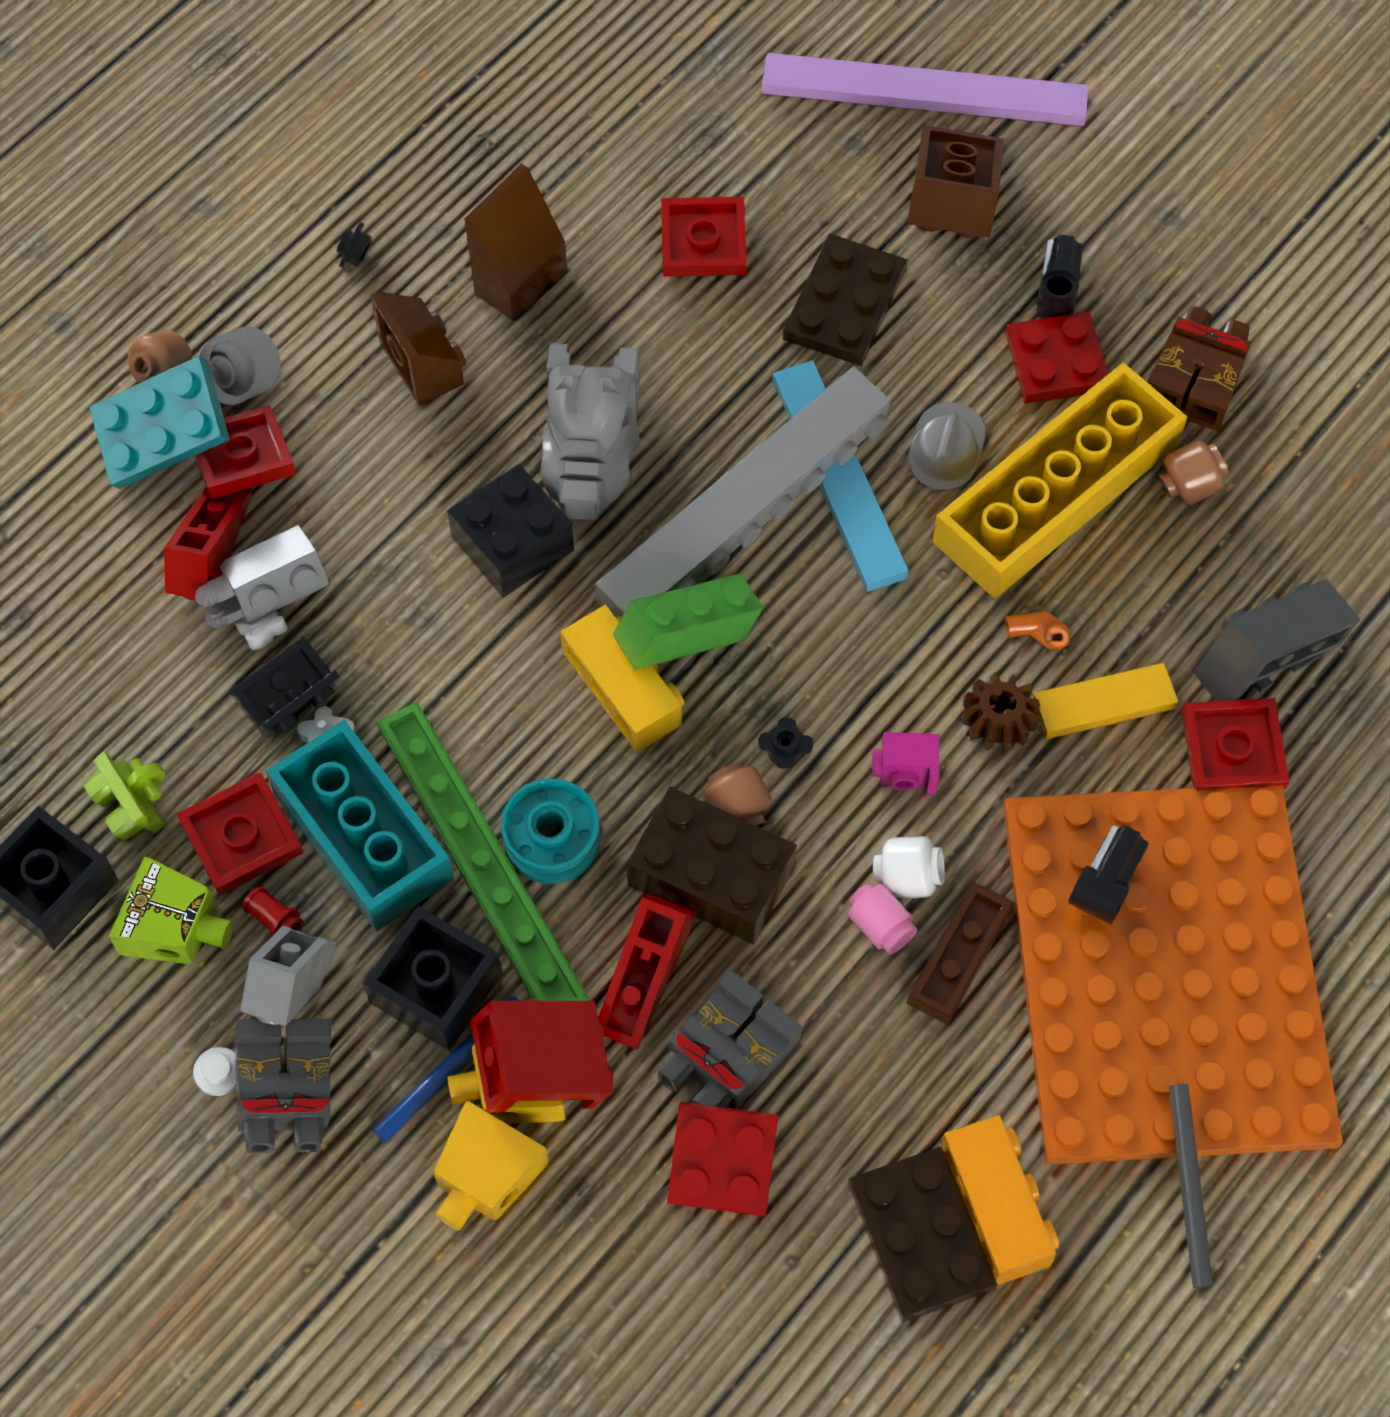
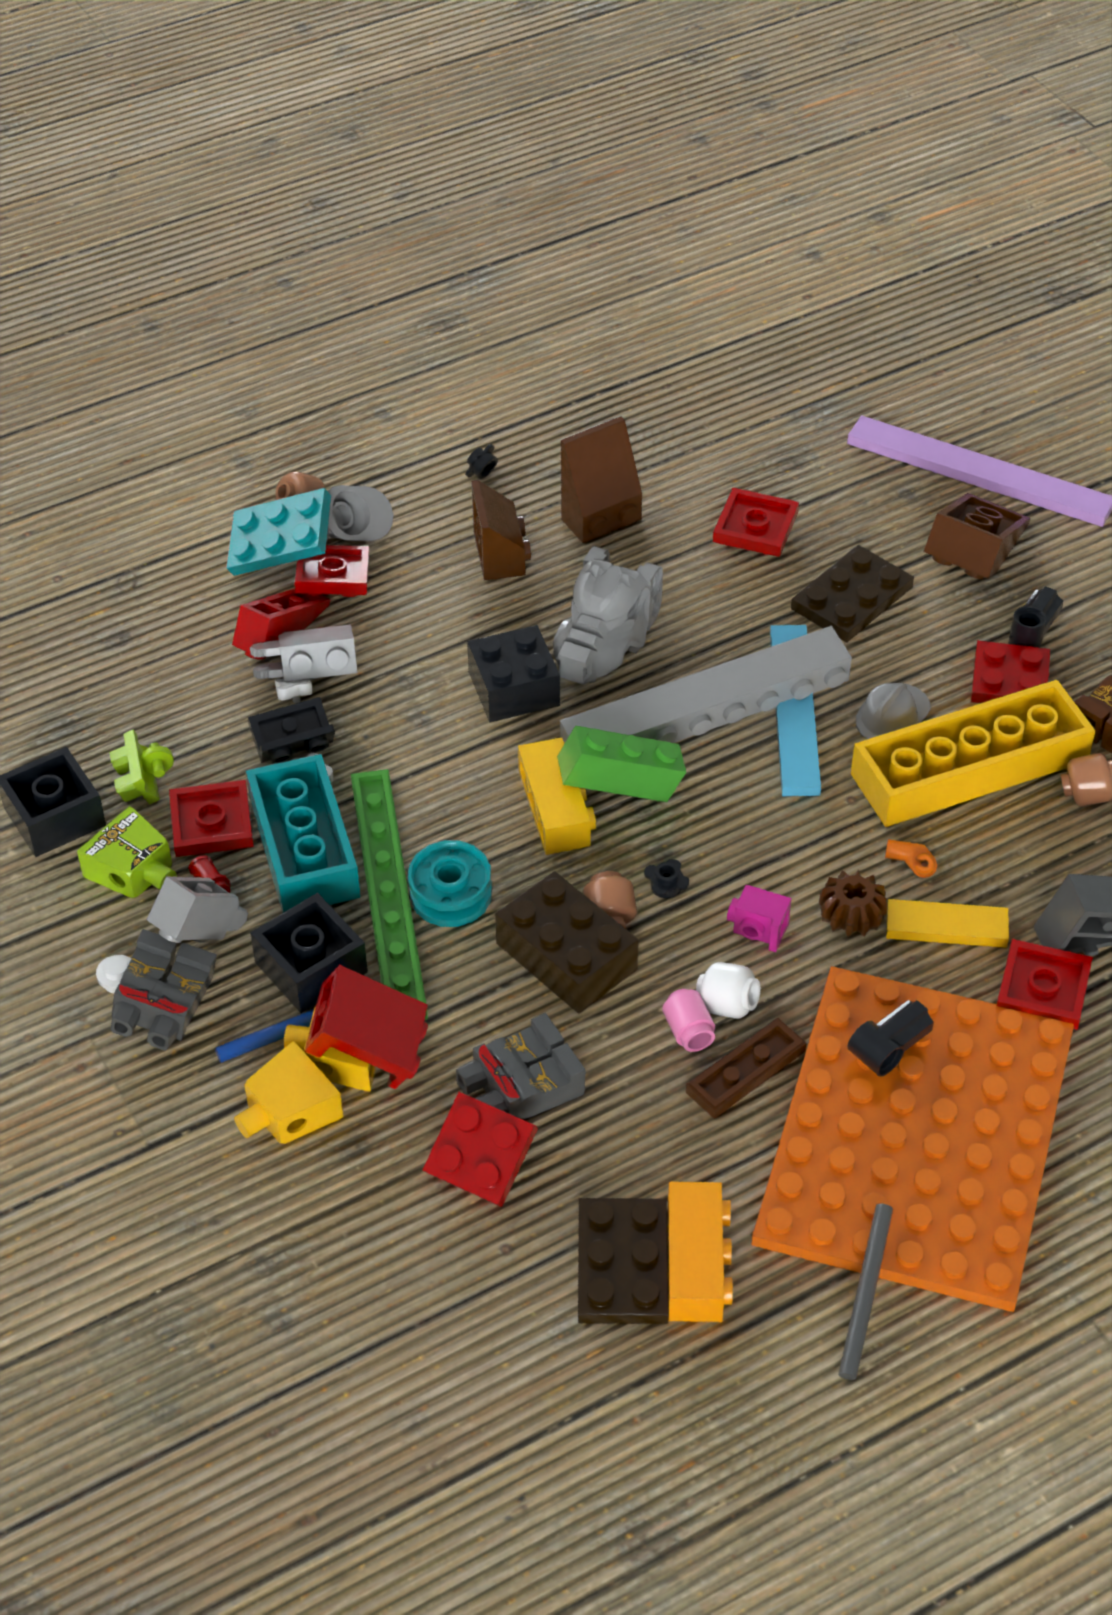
camera: 20 degrees right, 15 degrees down
(645, 967) = (481, 997): red slope -> none

